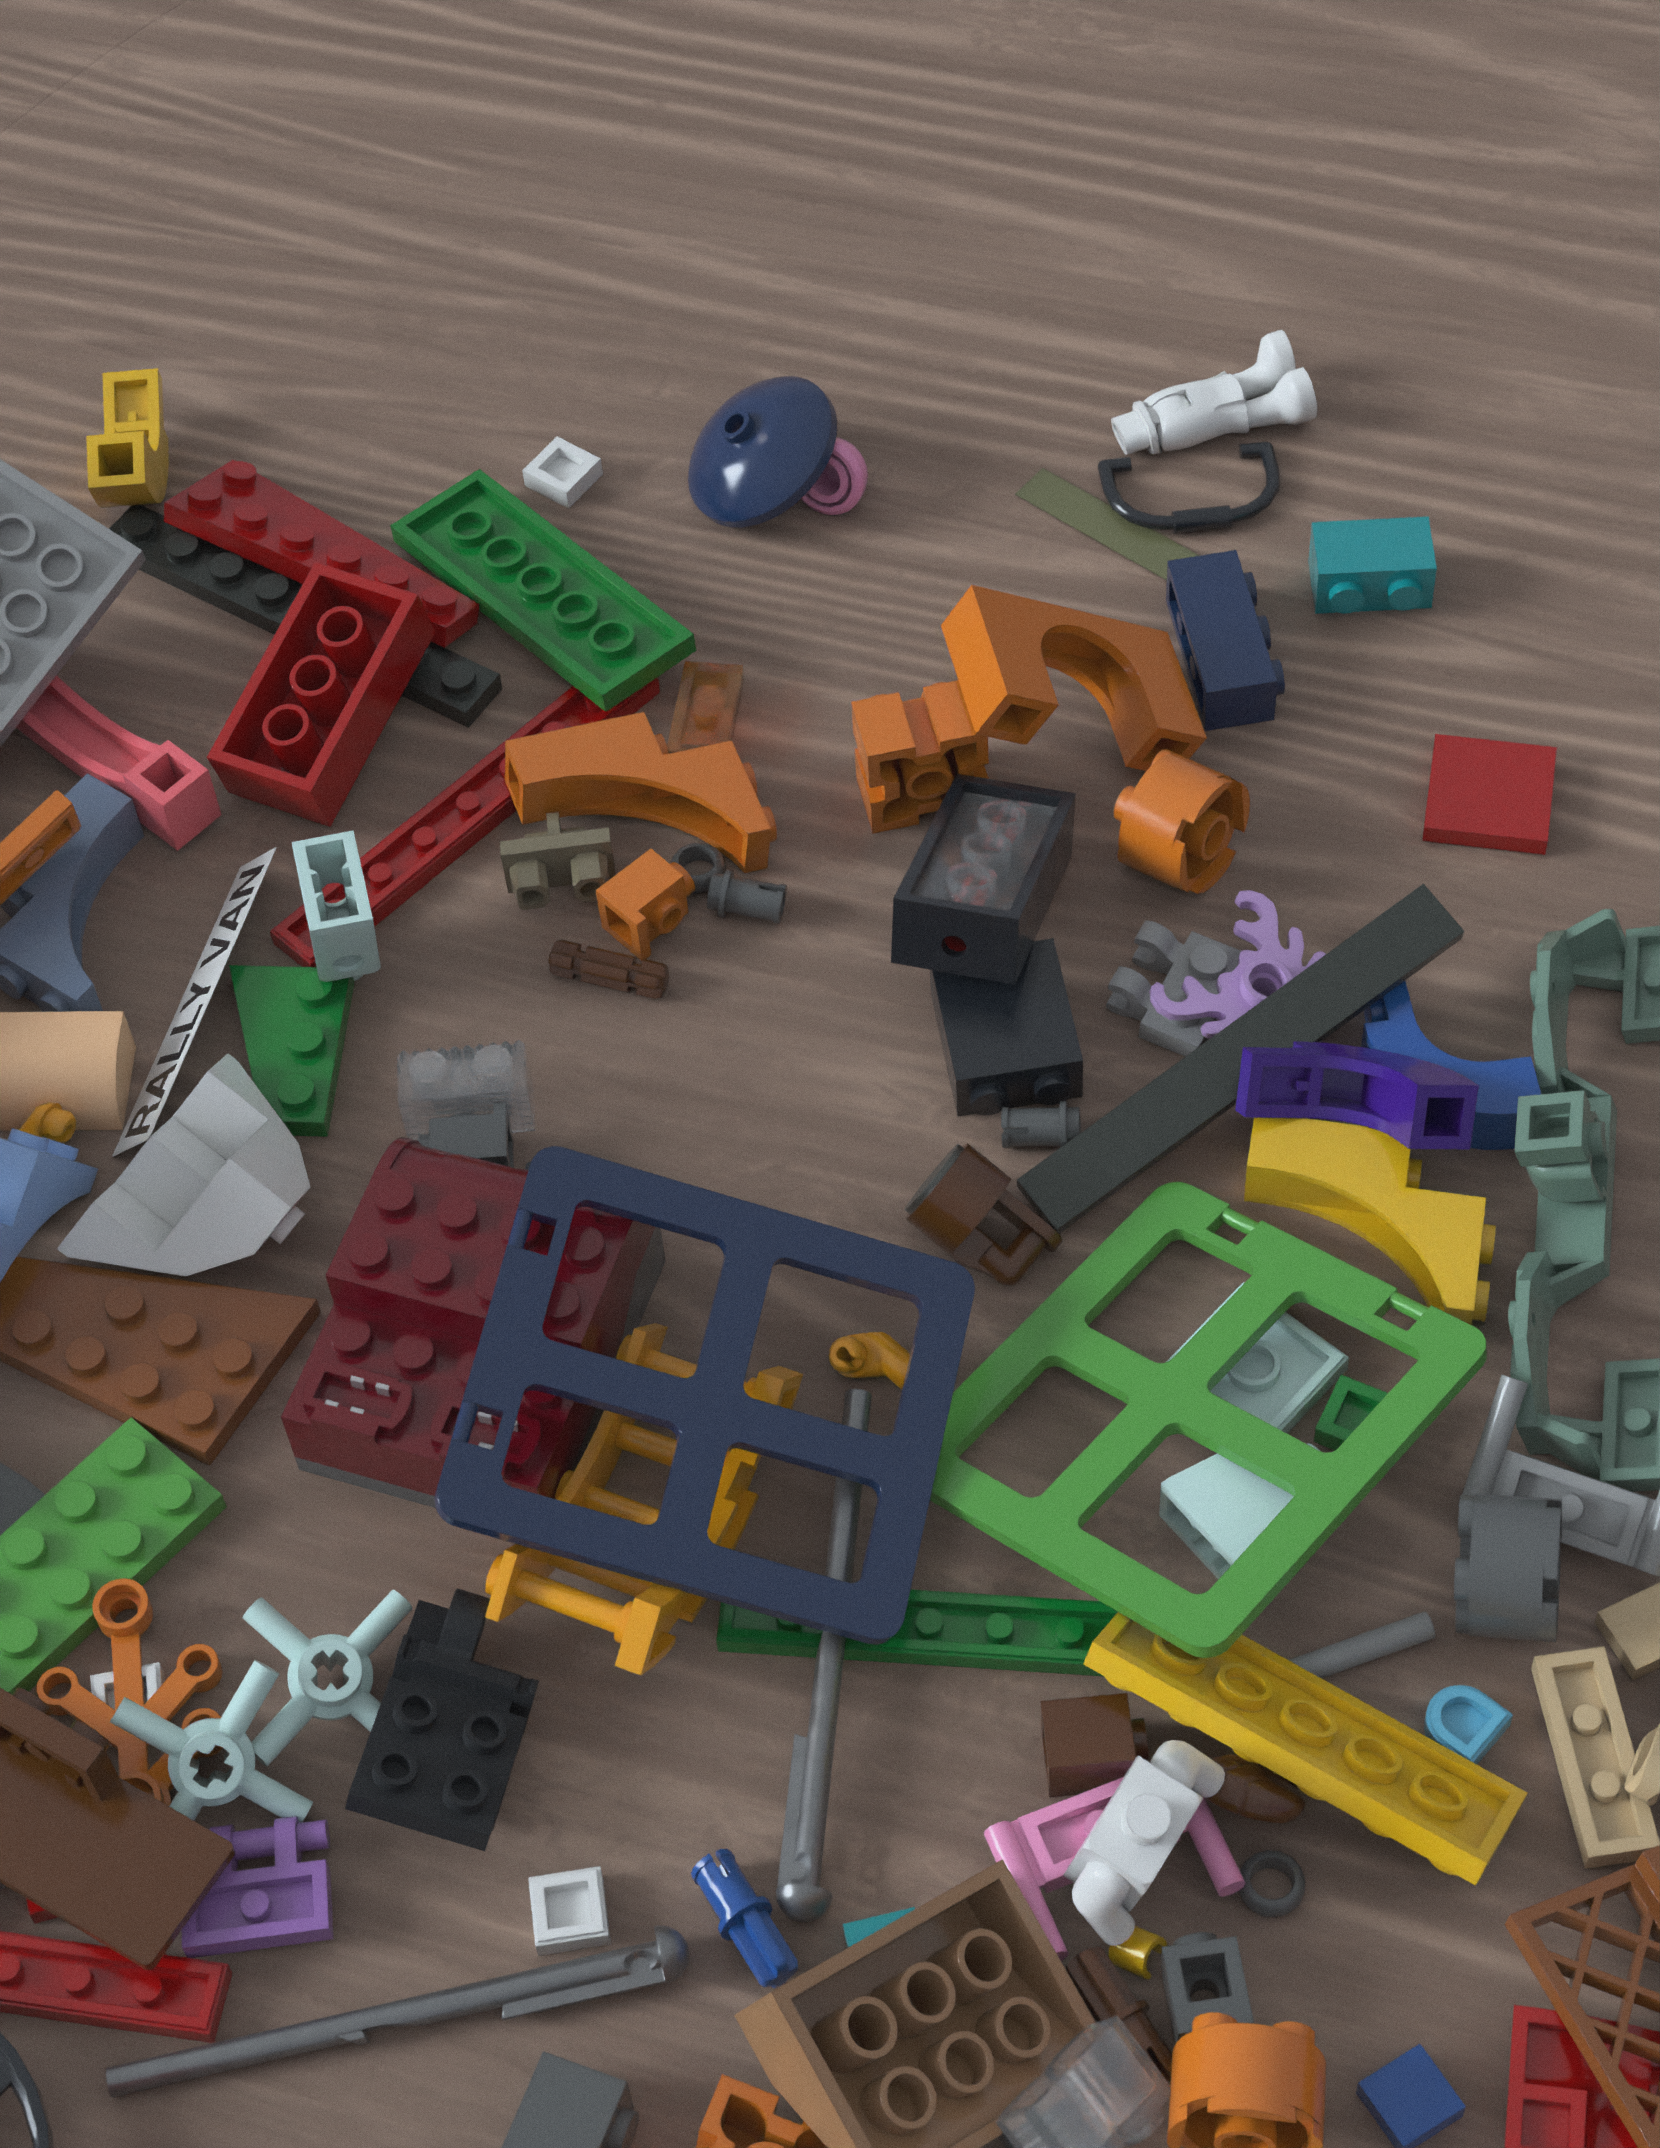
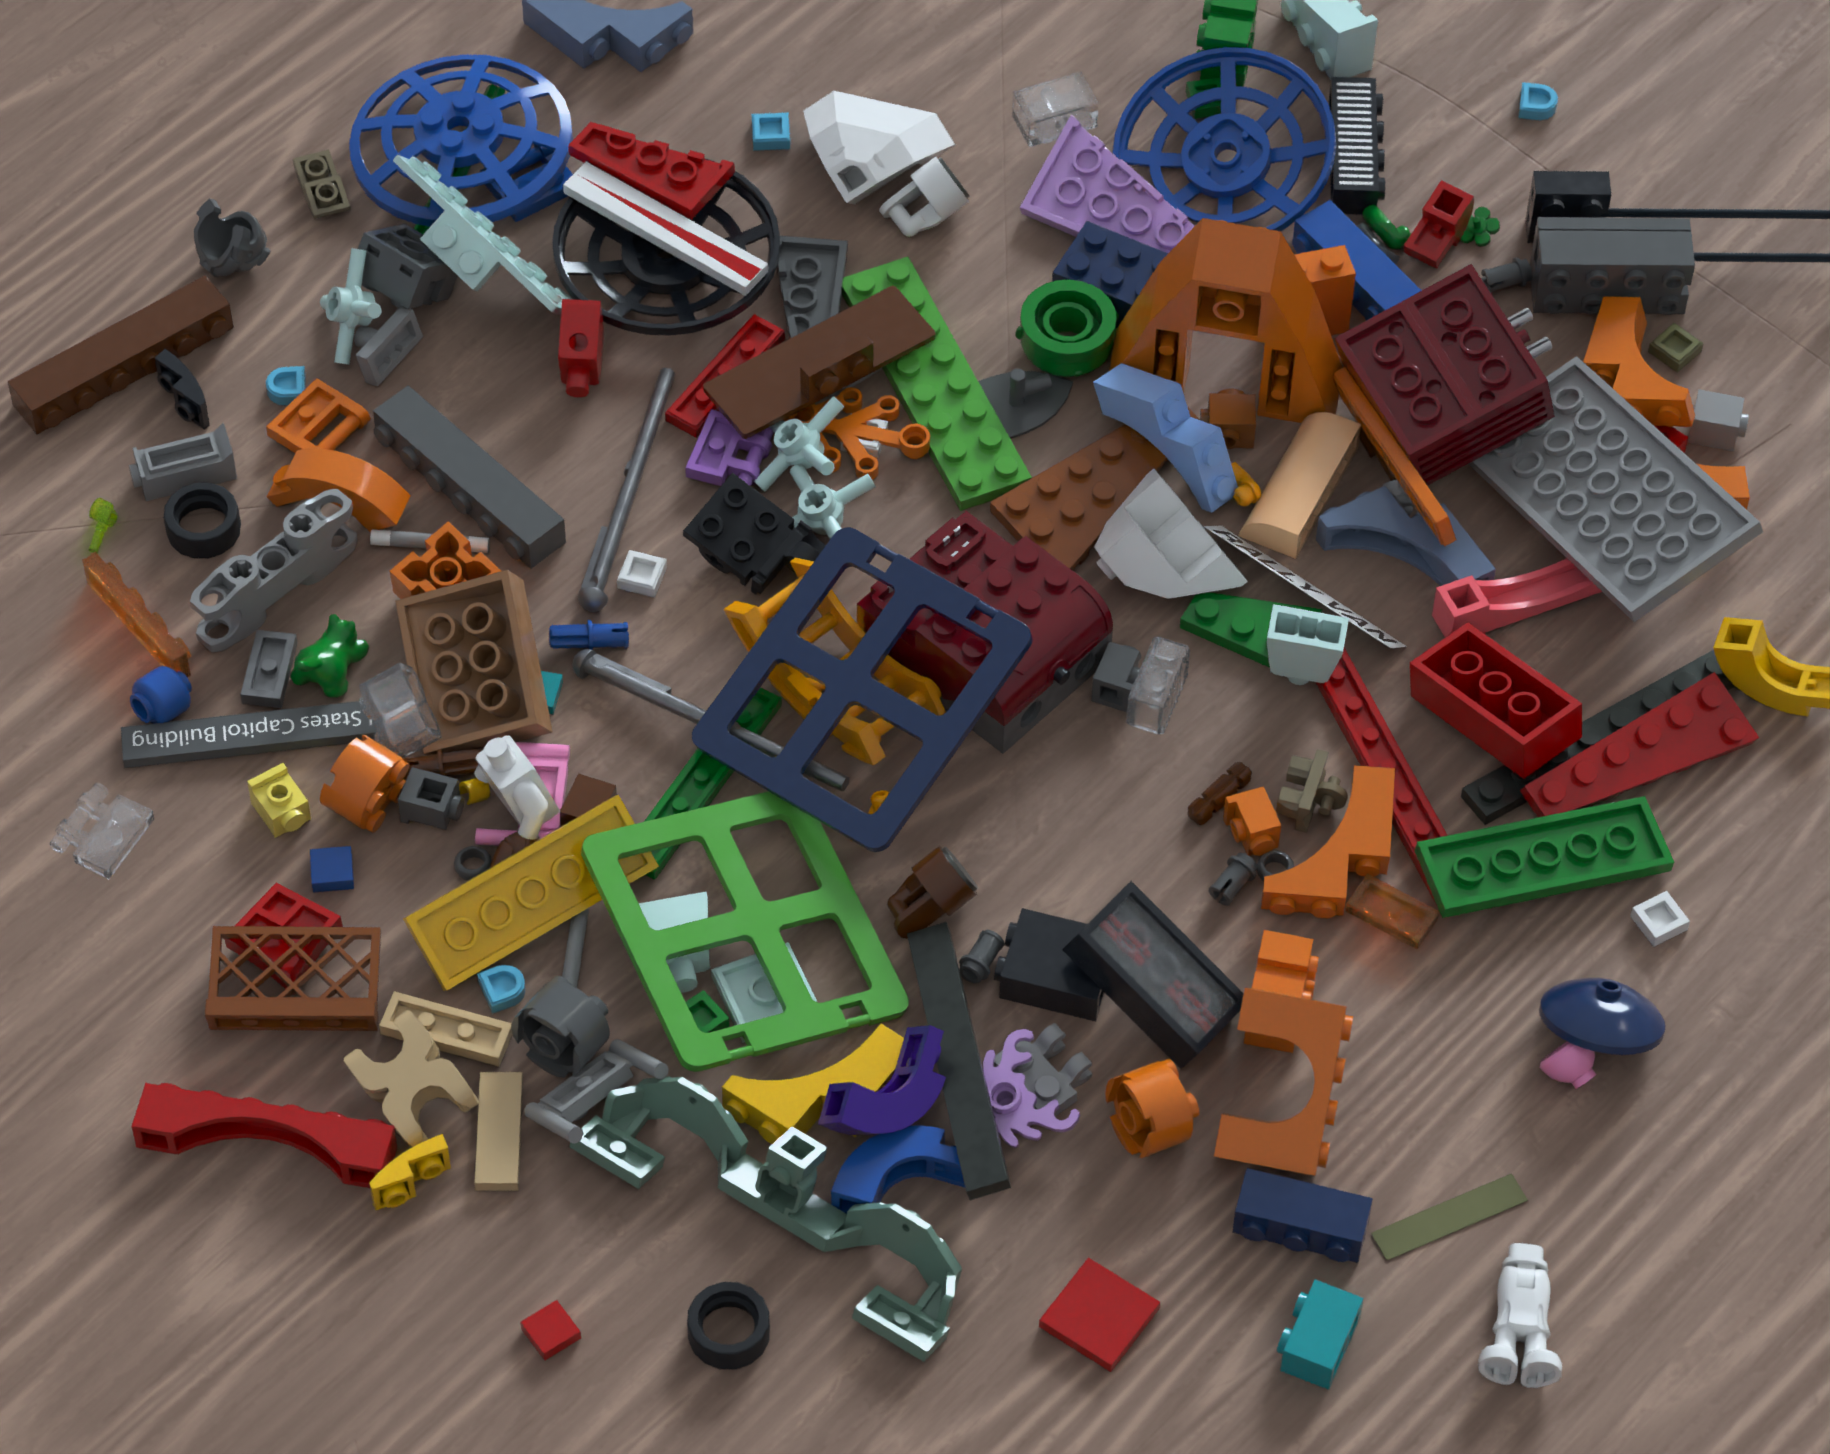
camera: 110 degrees right, 0 degrees up
(1194, 519) = (1426, 1266): black piece -> none

